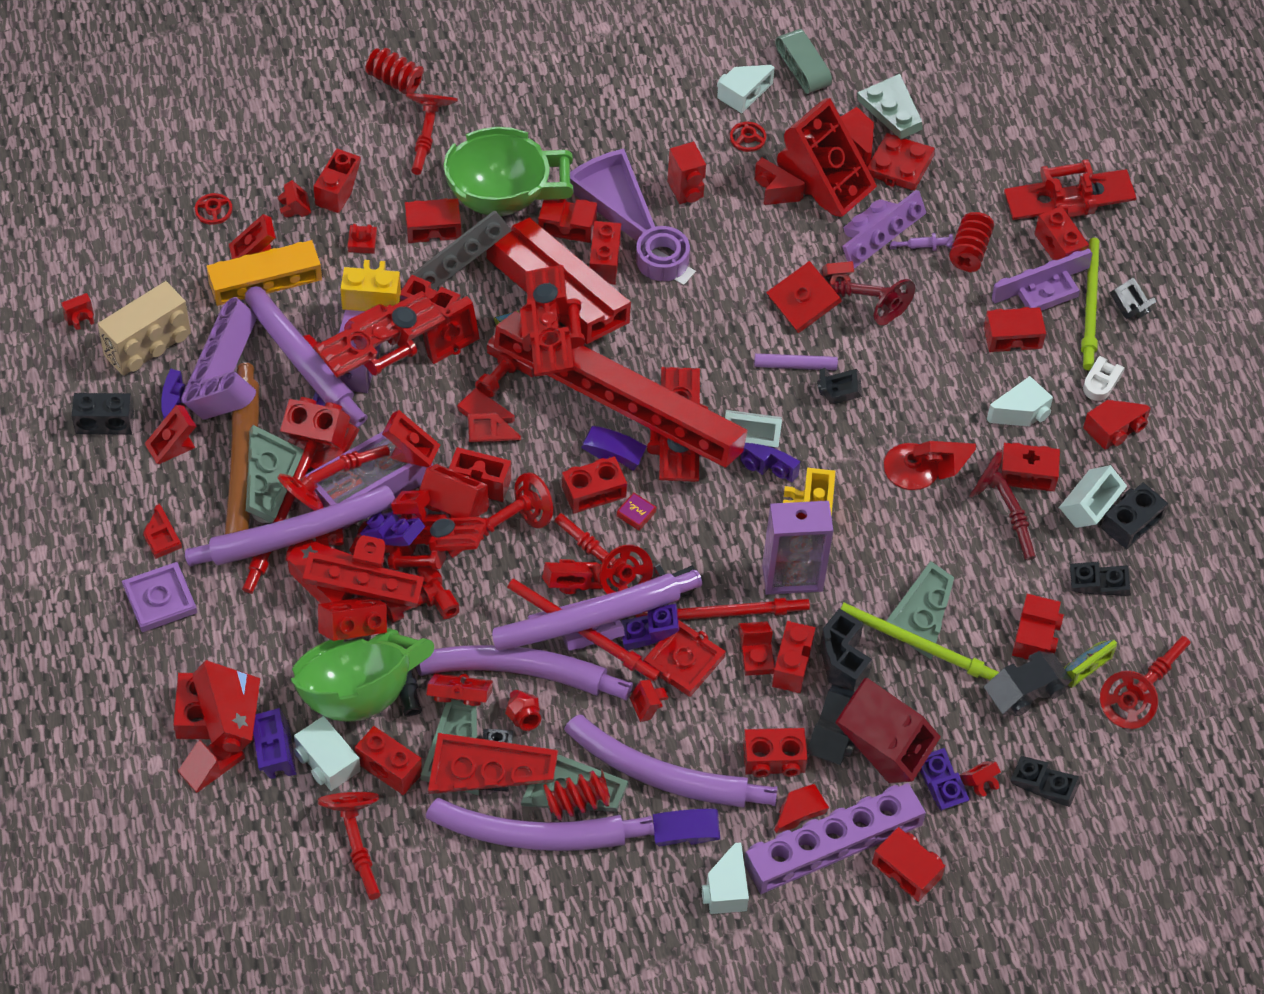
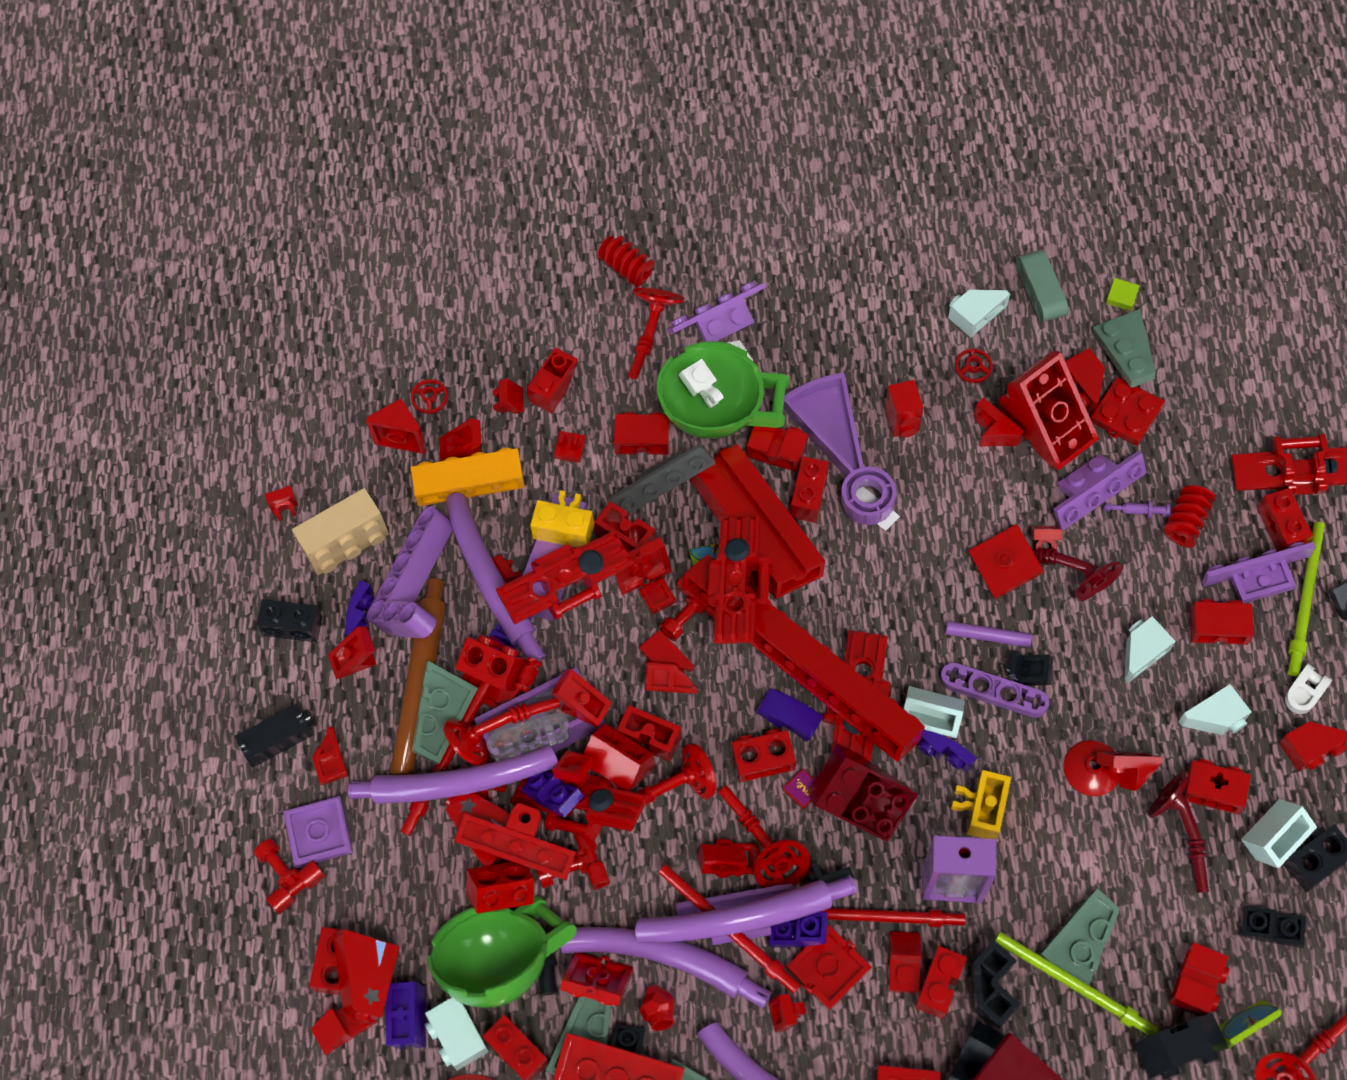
camera: 15 degrees right, 10 degrees up
(103, 515) = (275, 735): none -> black brick
(138, 641) = (290, 881): none -> red bar
(188, 233) = (396, 428): none -> red slope
(353, 429) = (528, 674): none -> red piece
(368, 471) = (517, 731): none -> clear beam
(468, 360) = (657, 596): none -> red tile
(485, 164) = (700, 380): none -> white plate
(502, 111) = (722, 318): none -> medium lavender bracket
(695, 503) = (861, 793): none -> dark red slope
(809, 404) = (995, 685): none -> medium lavender beam
(881, 63) = (1122, 294): none -> lime tile
(947, 356) = (1145, 646): none -> light aqua slope

